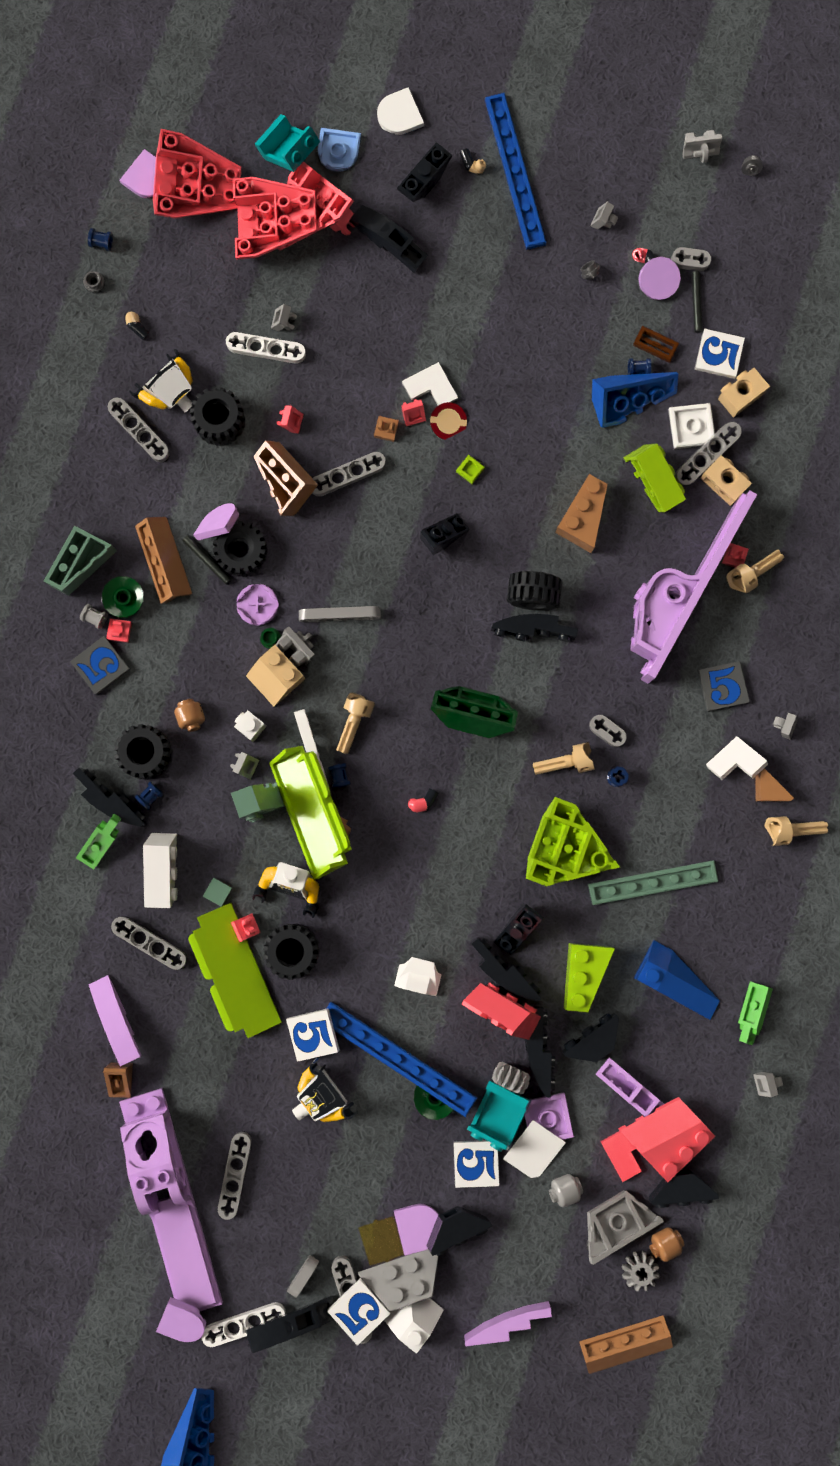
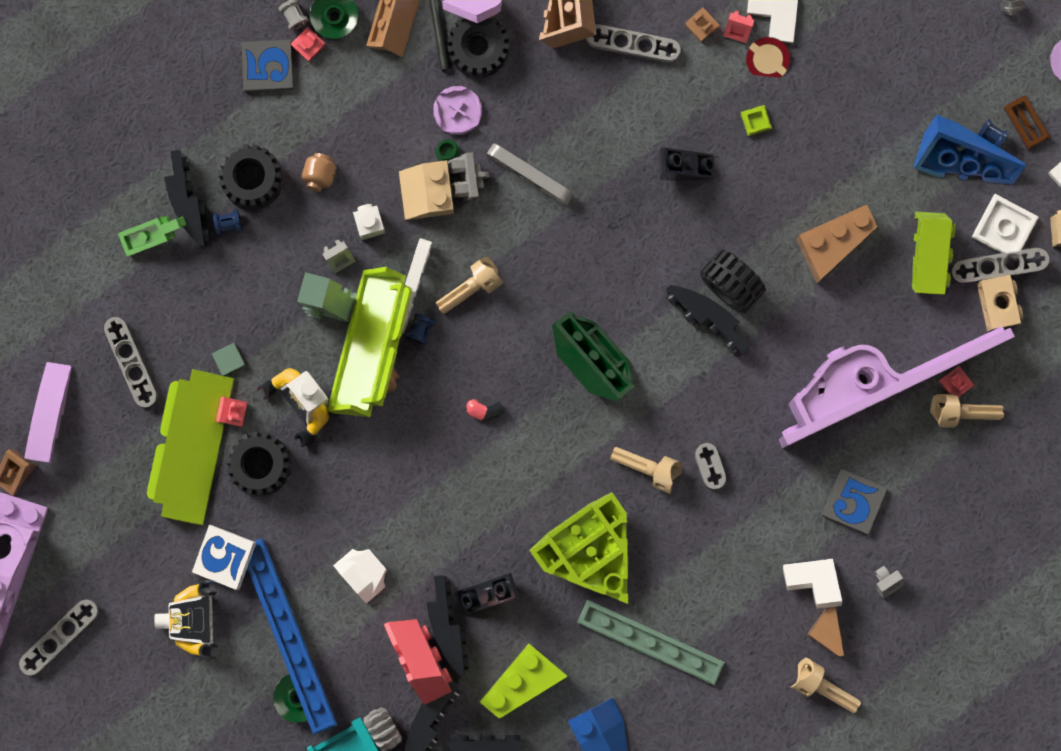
camera: 35 degrees right, 0 degrees up
(160, 870) = (188, 300): white wedge -> none
(612, 780) = (680, 515): dark blue bush -> none

